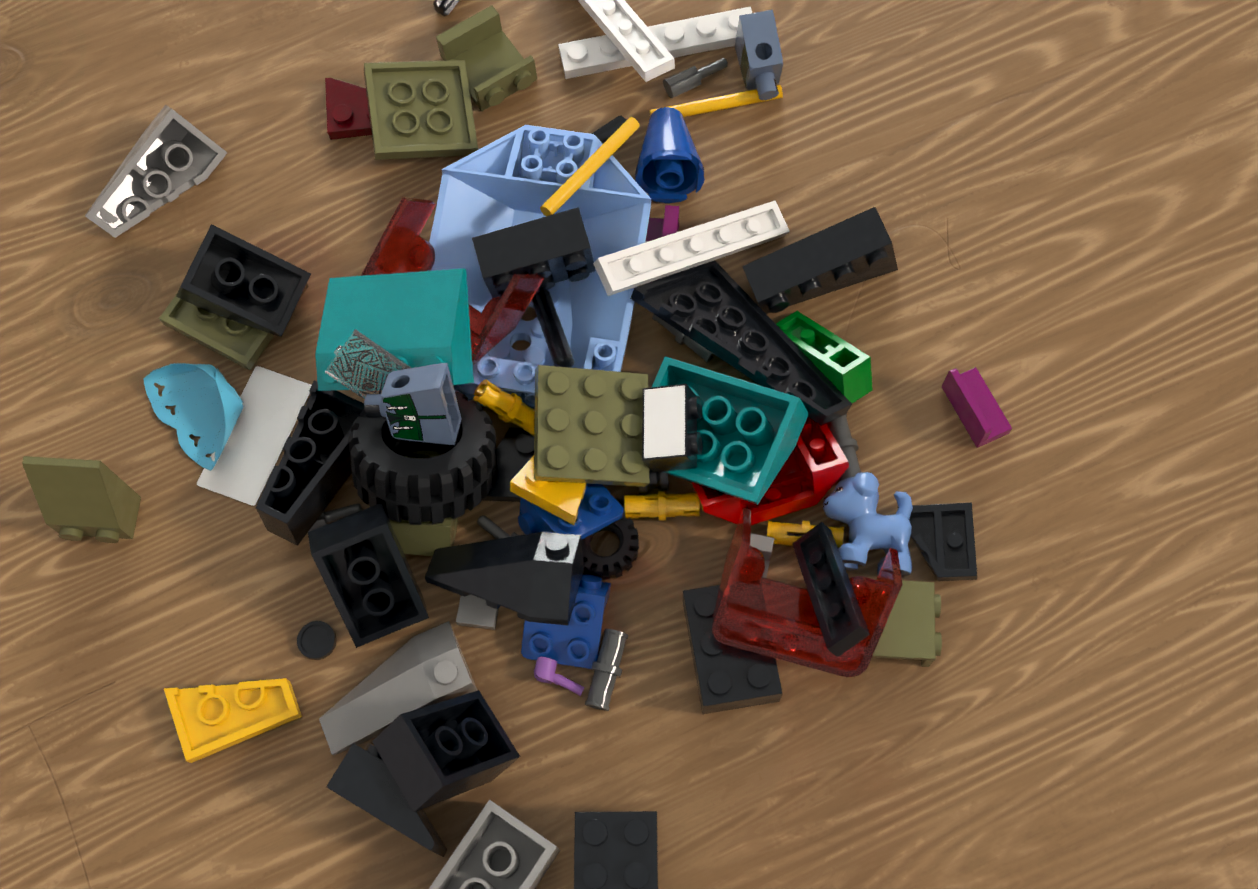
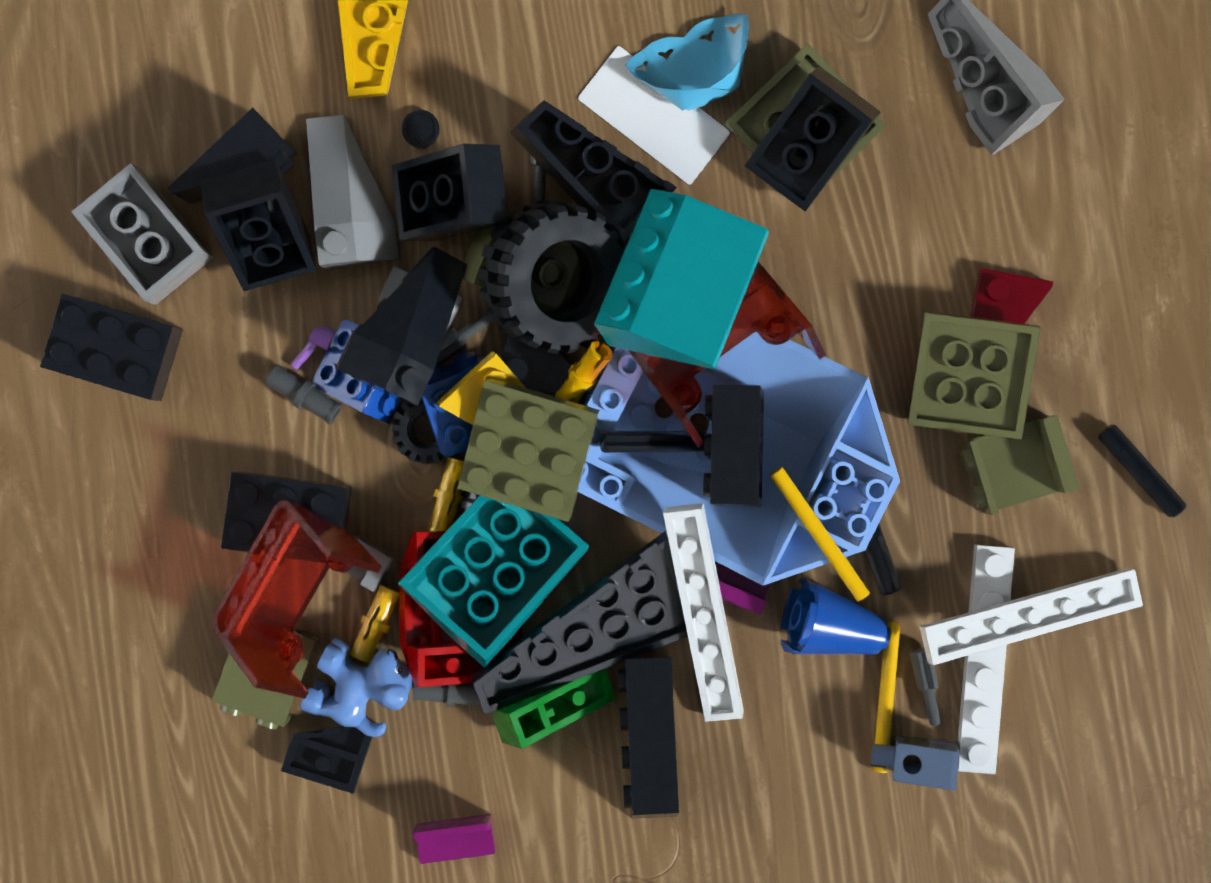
camera: 100 degrees right, 20 degrees up
(363, 365) = (637, 243): clear piece -> none
(418, 405) = (585, 282): sand blue torso -> none
(670, 428) = (500, 526): brick -> none
(830, 590) = (293, 623): black plate -> none

